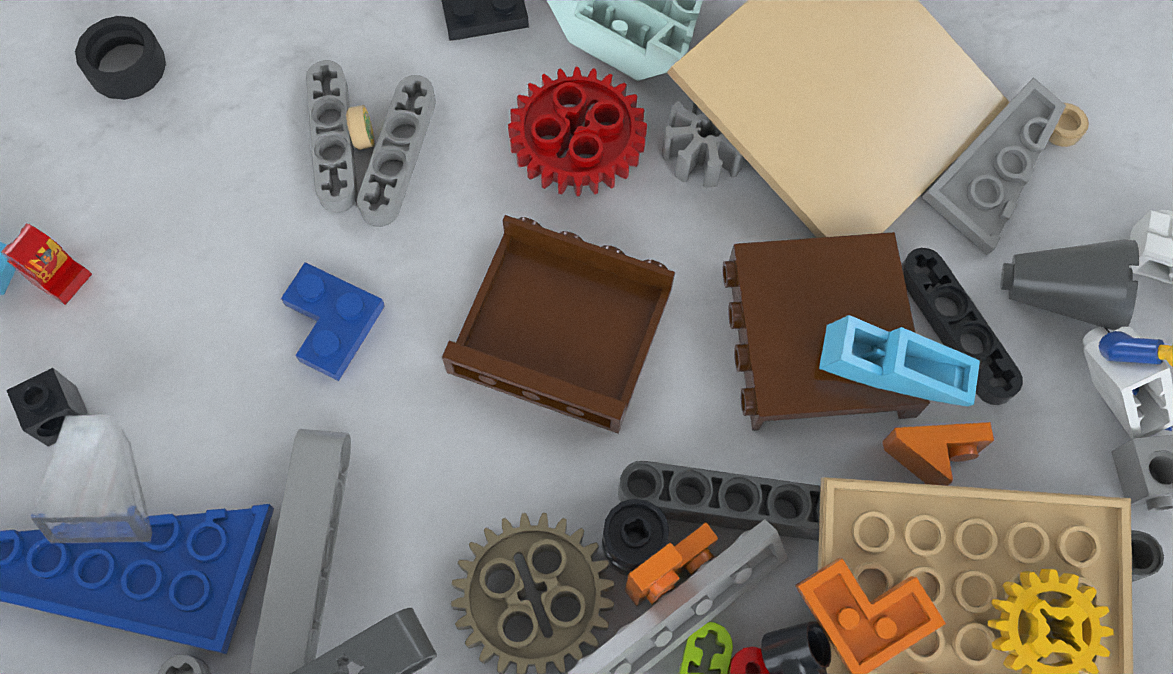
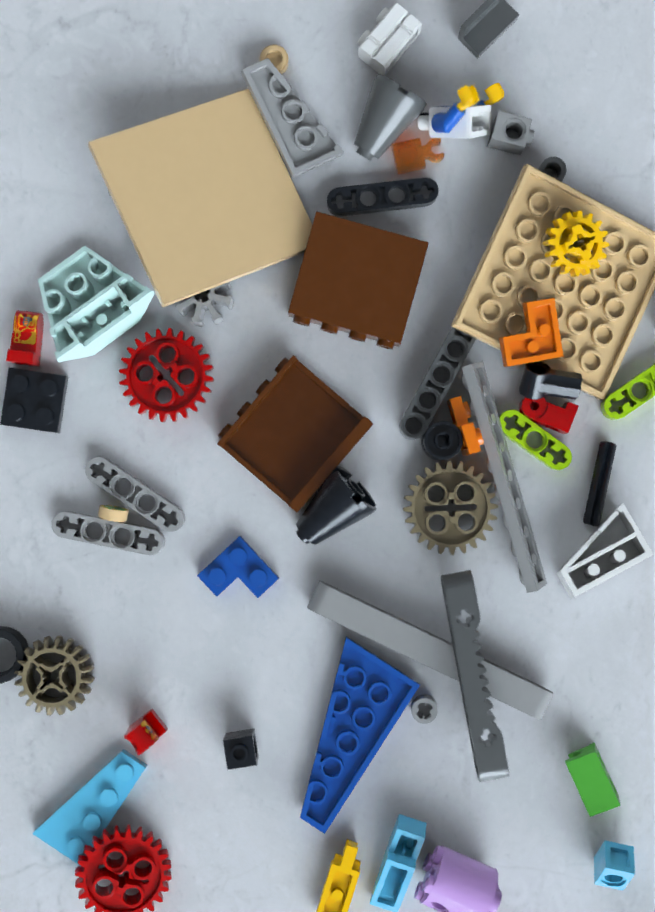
camera: 70 degrees left, 20 degrees up
(92, 486) = (300, 732): clear slope -> none
(103, 118) = (44, 667): none -> dark tan gear
(472, 413) = (334, 507): none -> black cone
(899, 362) = (402, 250): medium azure slope -> none
(929, 448) = (451, 254): orange slope -> none
(1041, 344) = (411, 155): none -> clear orange plate

